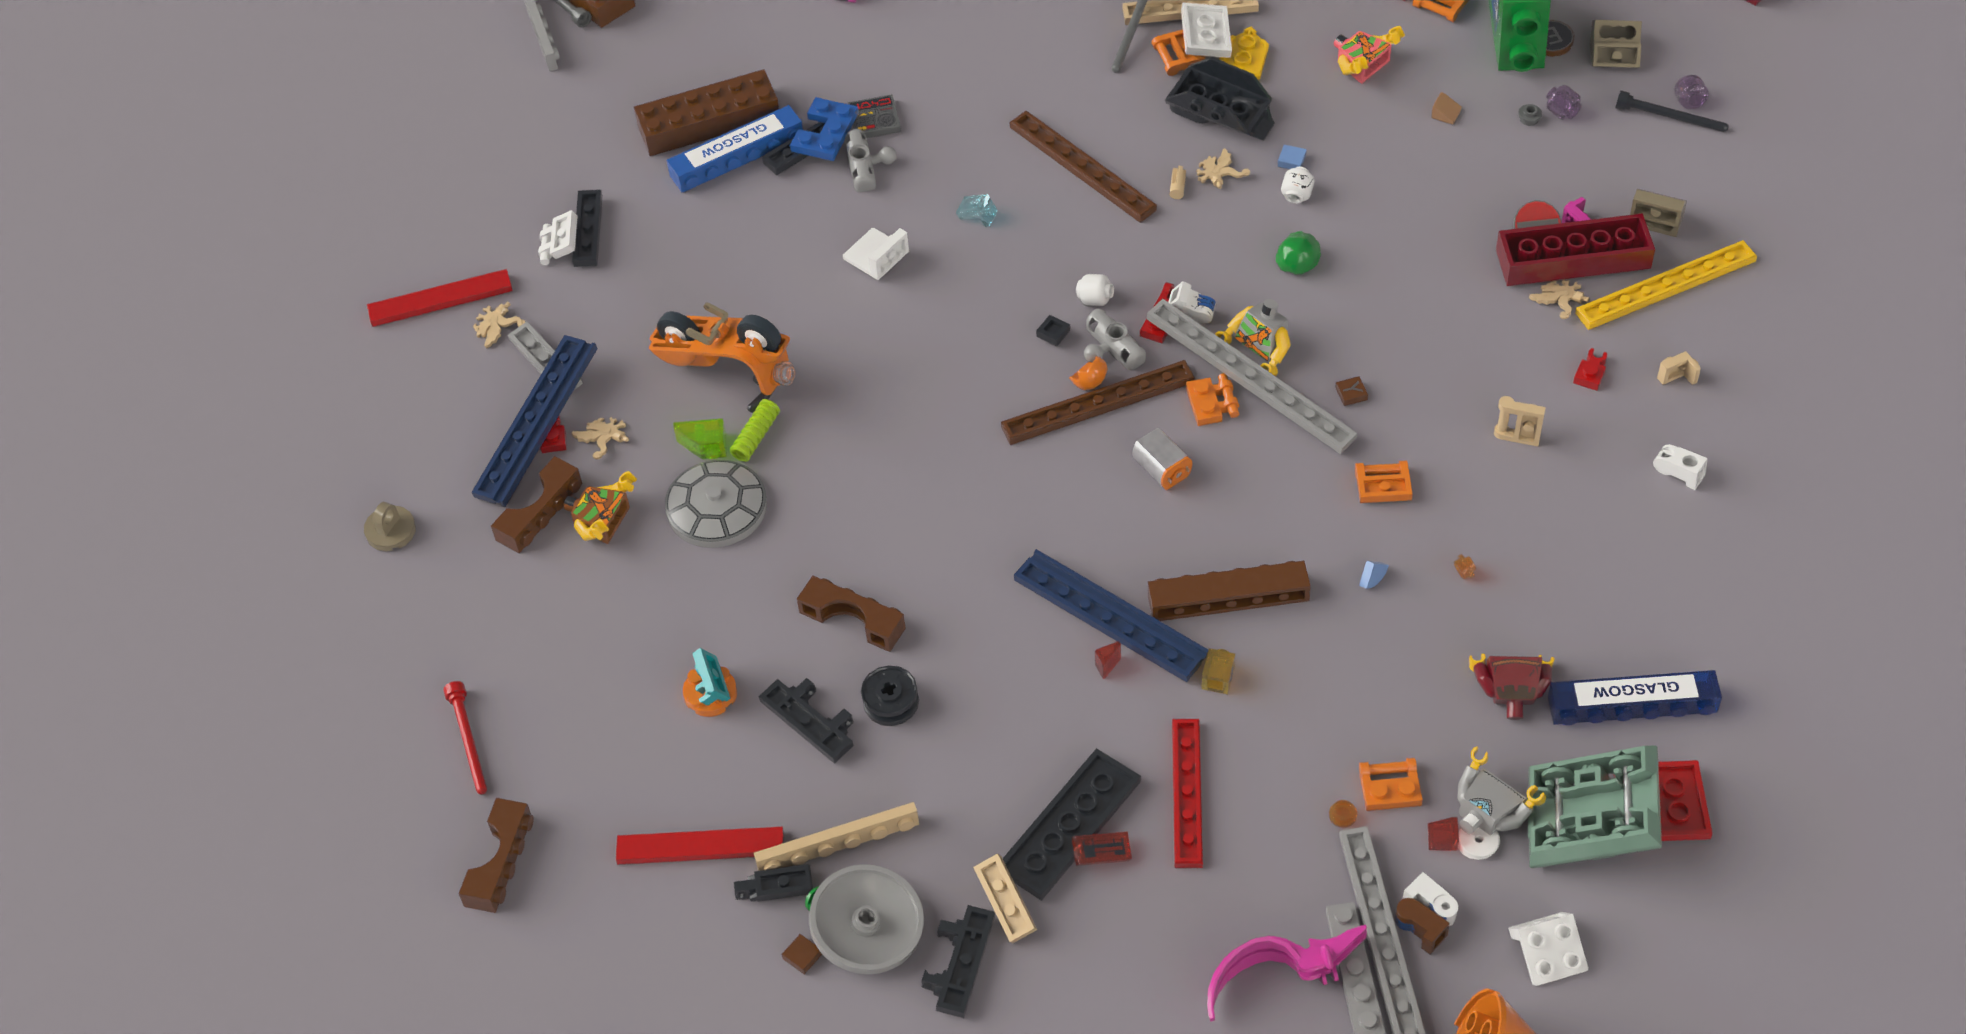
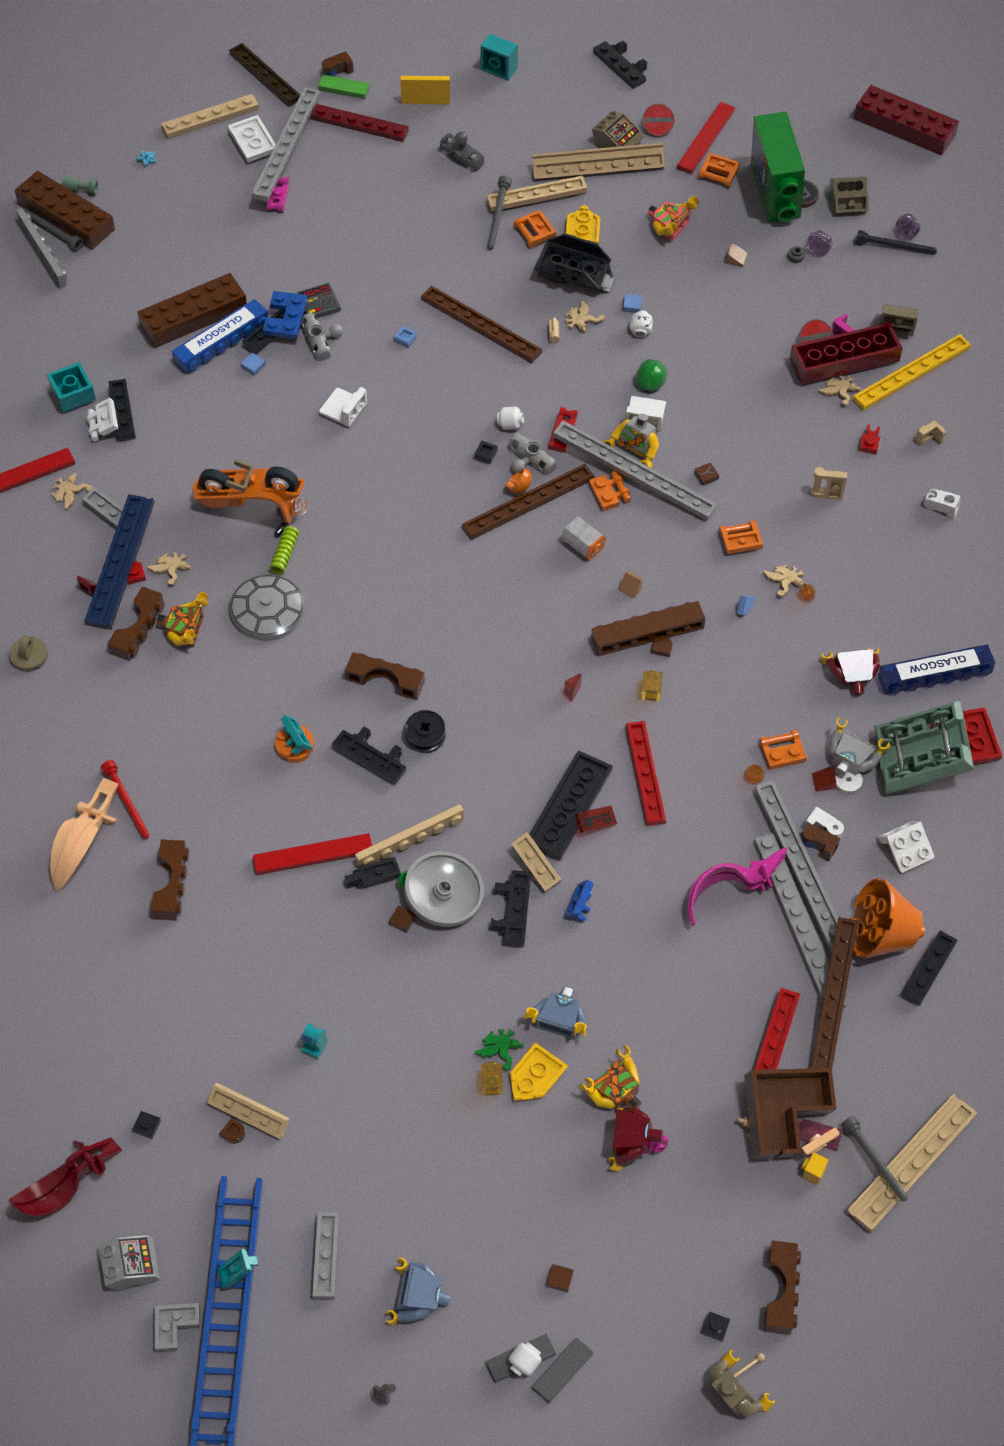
camera: 15 degrees left, 5 degrees up
(385, 773) = (77, 834): none -> light nougat piece
(485, 446) = (86, 585): none -> dark red slope
(528, 193) = (71, 387): none -> teal brick
(703, 437) = (247, 560): clear neon green slope -> none
(771, 187) = (253, 364): none -> medium blue tile
(977, 207) = (411, 364): clear light blue bracket -> none
(978, 172) = (405, 337): none -> medium blue tile
(1061, 953) = (577, 903): none -> blue plate
(1111, 615) = (569, 655): dark blue plate -> none
(1192, 303) = (583, 421): white leg -> none
(1206, 30) = (553, 211): white plate -> none
(1216, 528) = (631, 584): none -> medium nougat slope
(1244, 618) = (662, 646): none -> reddish brown tile
(1290, 298) = (652, 408): none -> white bracket
(1438, 545) = (784, 575): none -> tan piece

